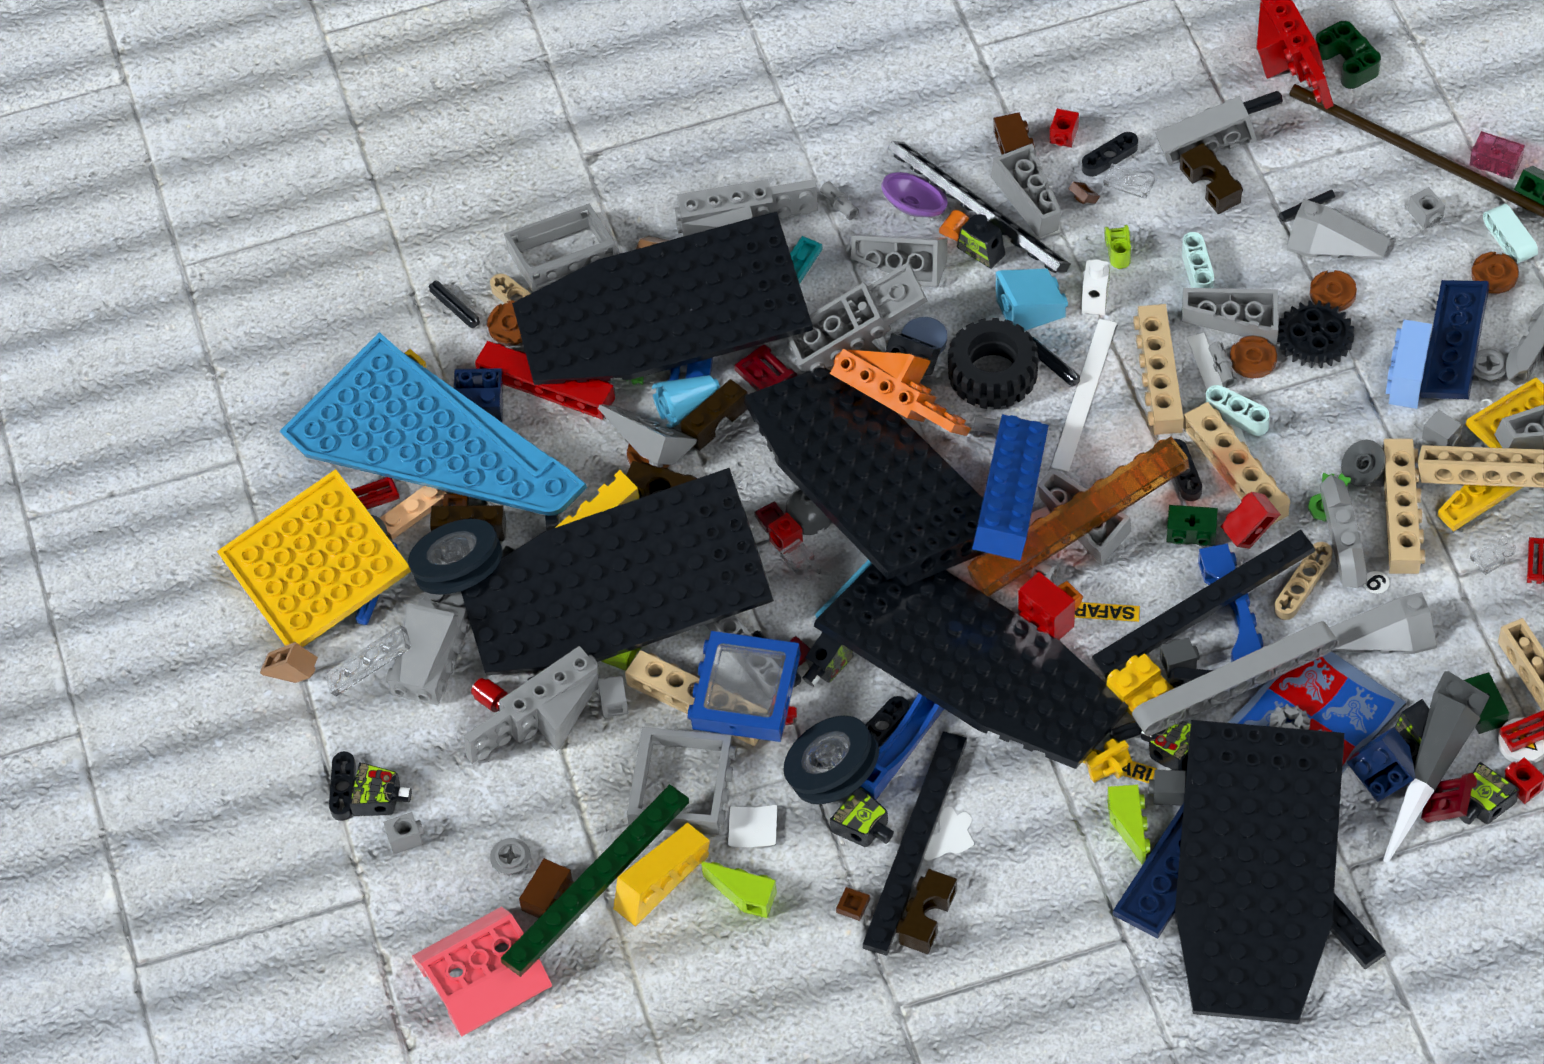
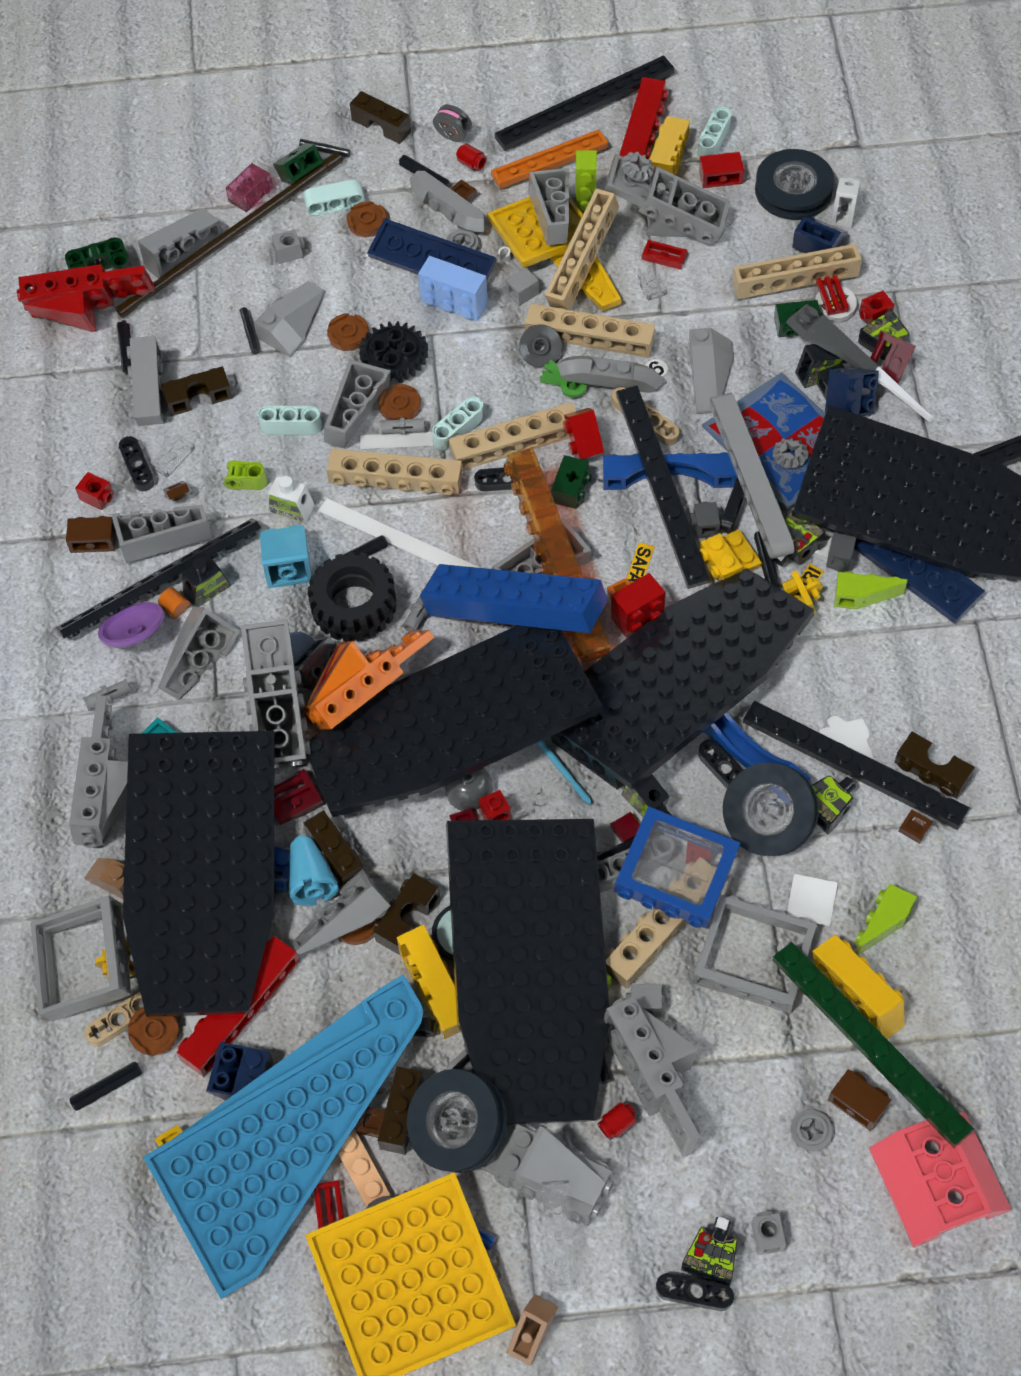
camera: 80 degrees left, 5 degrees up
(1396, 111) = (178, 241): none -> light grey wedge

